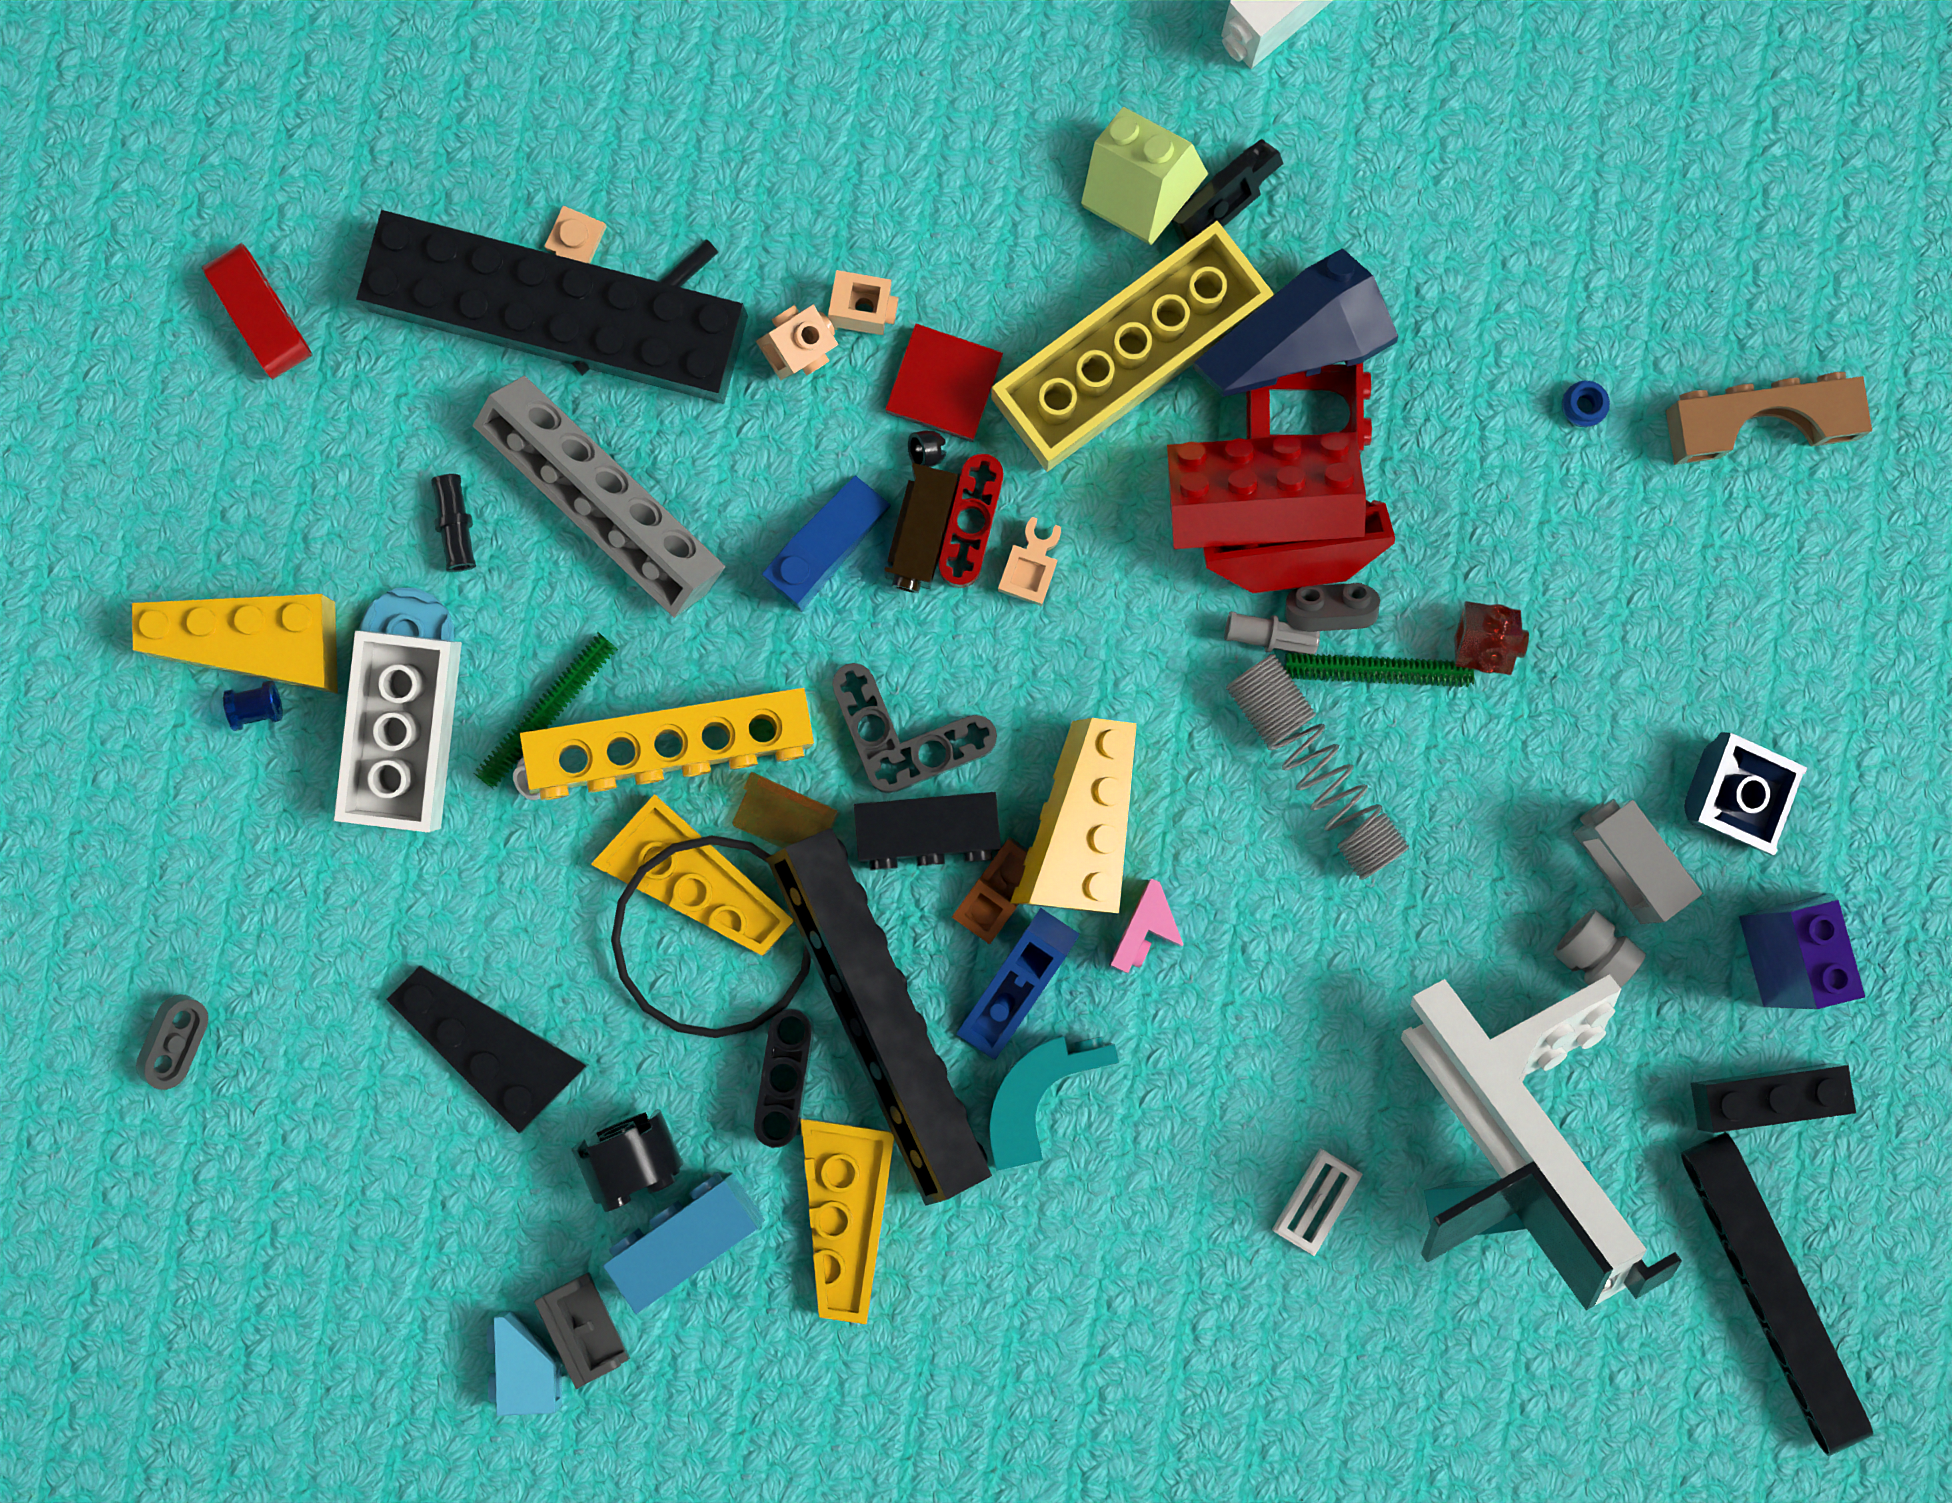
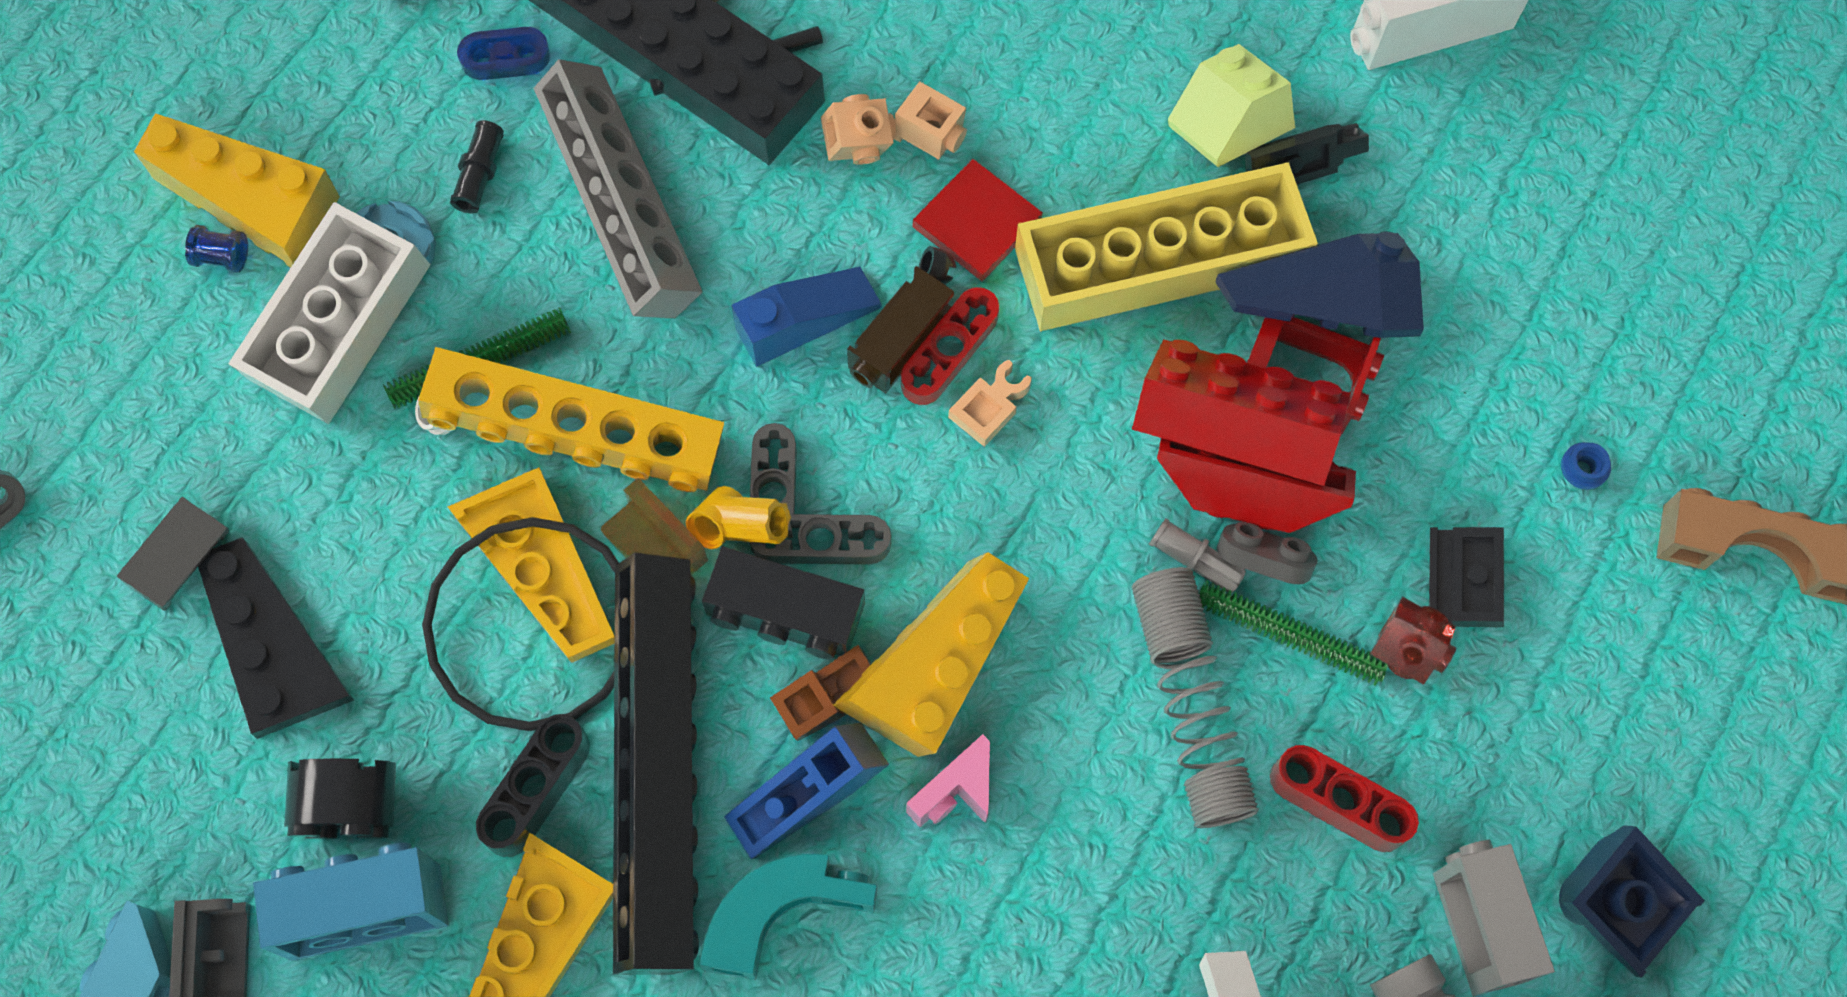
camera: 20 degrees right, 15 degrees down
(370, 1007) = (172, 553): none -> dark grey hinge
(420, 390) = (504, 52): none -> clear blue plate
(845, 771) = (738, 518): none -> yellow piece
(1499, 801) = (1368, 798): none -> red beam
(1514, 555) = (1468, 575): none -> black plate

